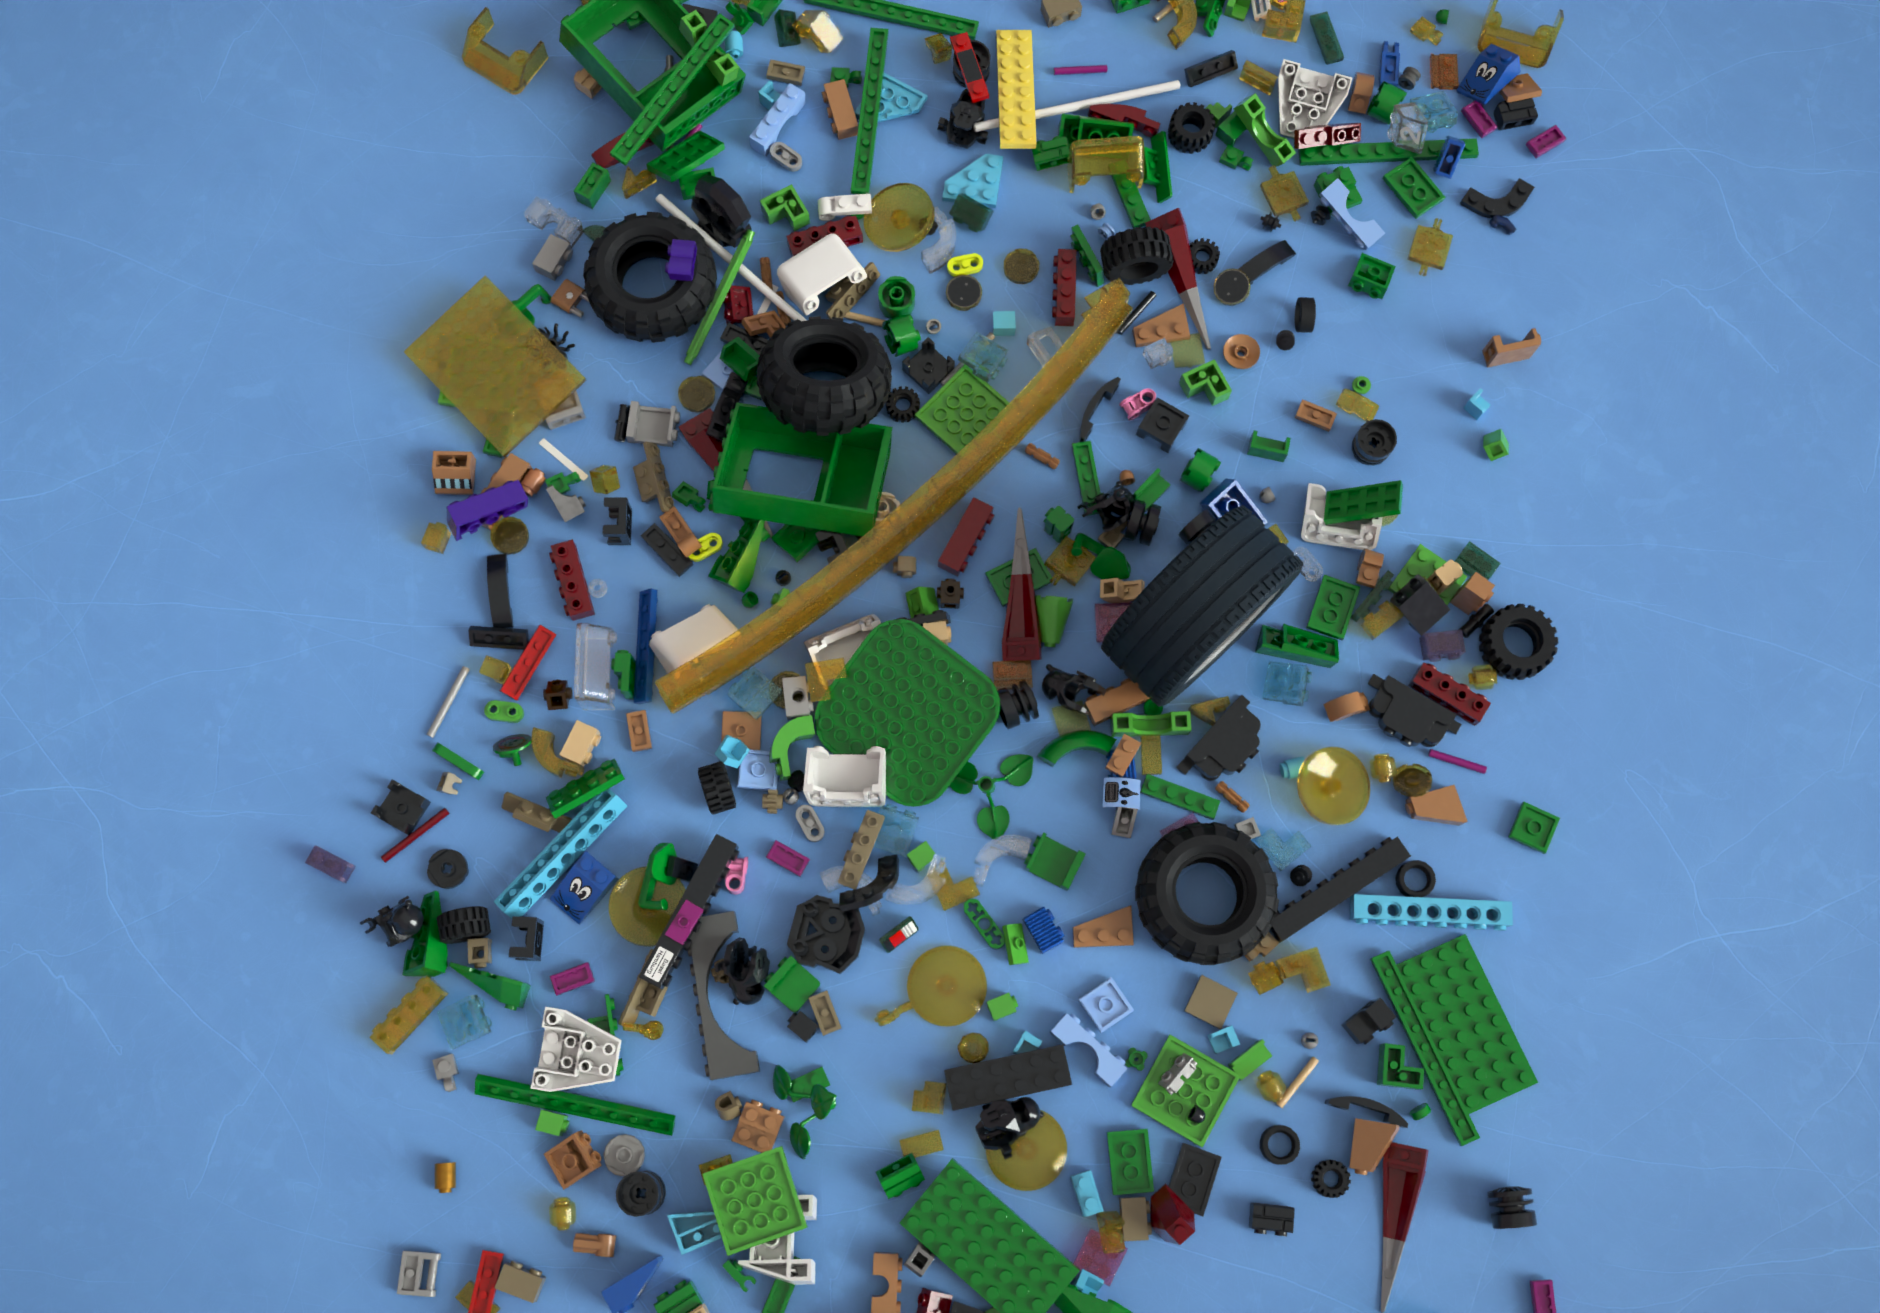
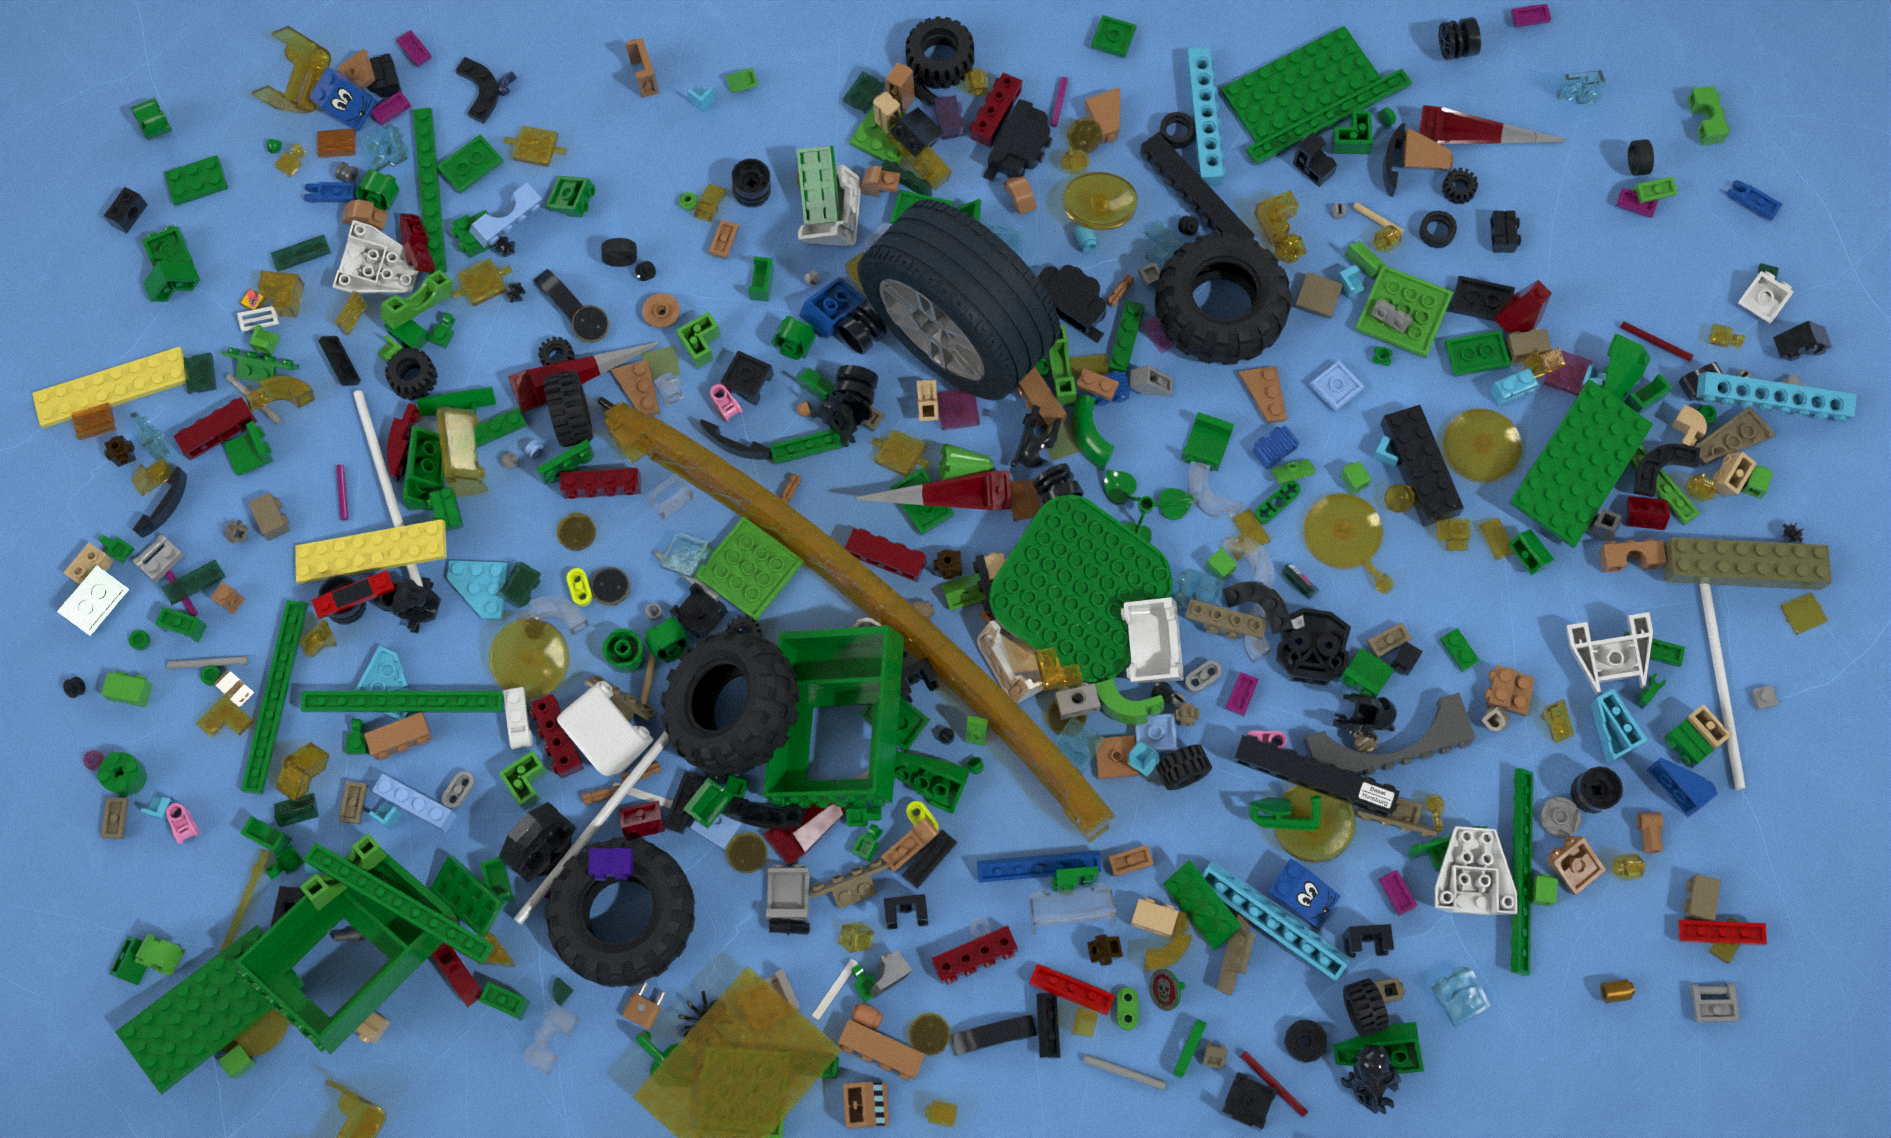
camera: 90 degrees left, 5 degrees down
(408, 1015) = (1464, 1056): clear yellow brick -> none
(445, 1069) = (1510, 1009): light grey plate -> none
(485, 508) = (911, 1054): dark purple wedge -> none
(503, 989) = (1421, 958): green wedge -> none
(552, 257) = (596, 1034): light grey brick -> none
(681, 869) = (1272, 793): black plate -> none
(684, 922) = (1331, 774): magenta plate -> none
(691, 637) = (1032, 810): white windscreen -> none
(719, 297) = (622, 831): bright green piece -> none
(754, 1200) = (1585, 674): bright green plate -> none
(761, 323) = (661, 782): medium nougat plate -> none
(821, 1103) = (1486, 619): green plant -> none
(1004, 323) = (645, 539): medium azure panel -> none
(1006, 1122) = (1467, 458): black helmet -> none
(1058, 523) = (864, 465): green brick -> none
(1108, 1067) = (1395, 379): light blue arch -> none
(1109, 561) = (901, 415): green piece -> none
(1121, 792) = (1135, 382): light blue sticker -> none
(1196, 1115) = (1426, 297): black hinge -> none
(1408, 127) = (409, 165): clear slope -> none
(1449, 157) = (438, 129): blue brick -> none

